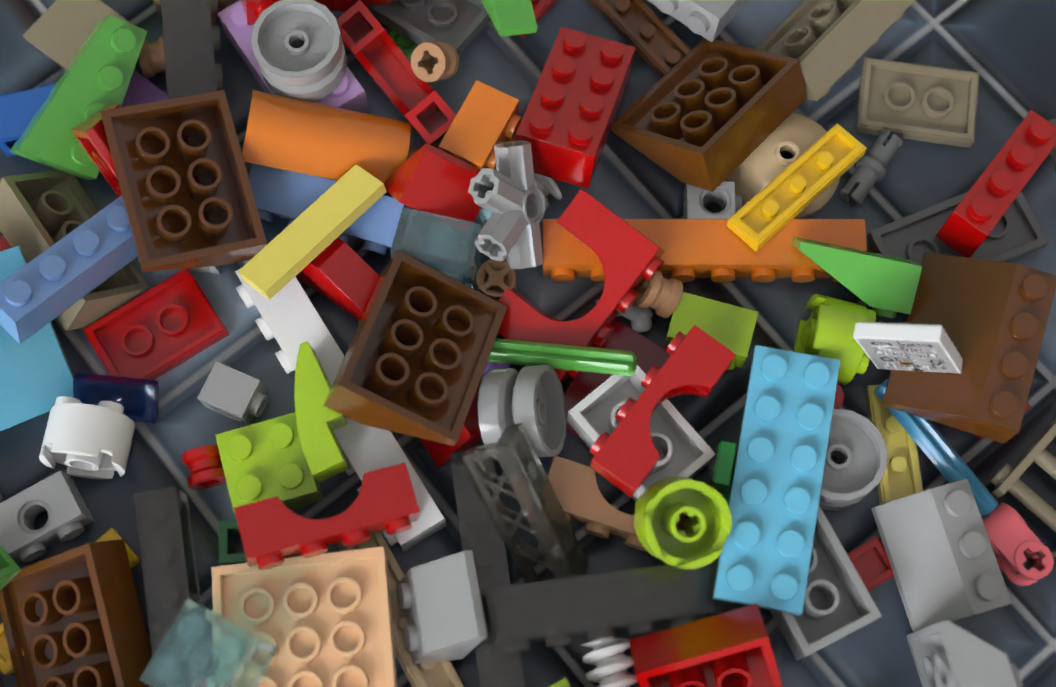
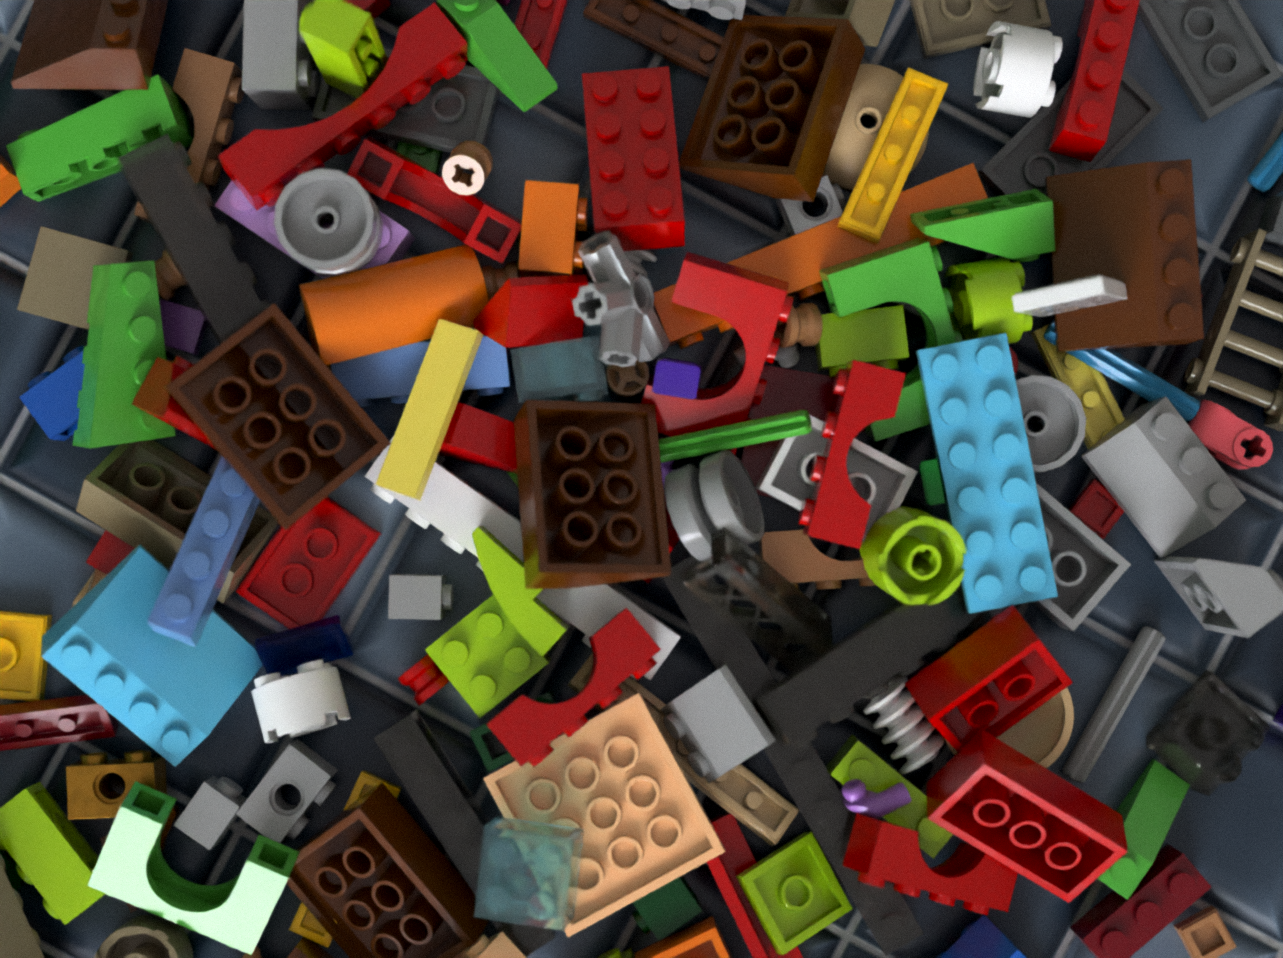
camera: 25 degrees left, 15 degrees up
(537, 288) = (676, 378): none -> dark purple slope
(773, 288) = (900, 275): none -> bright green arch
(870, 168) = (957, 97): dark grey pin -> none
(929, 161) = (1016, 69): none -> white brick

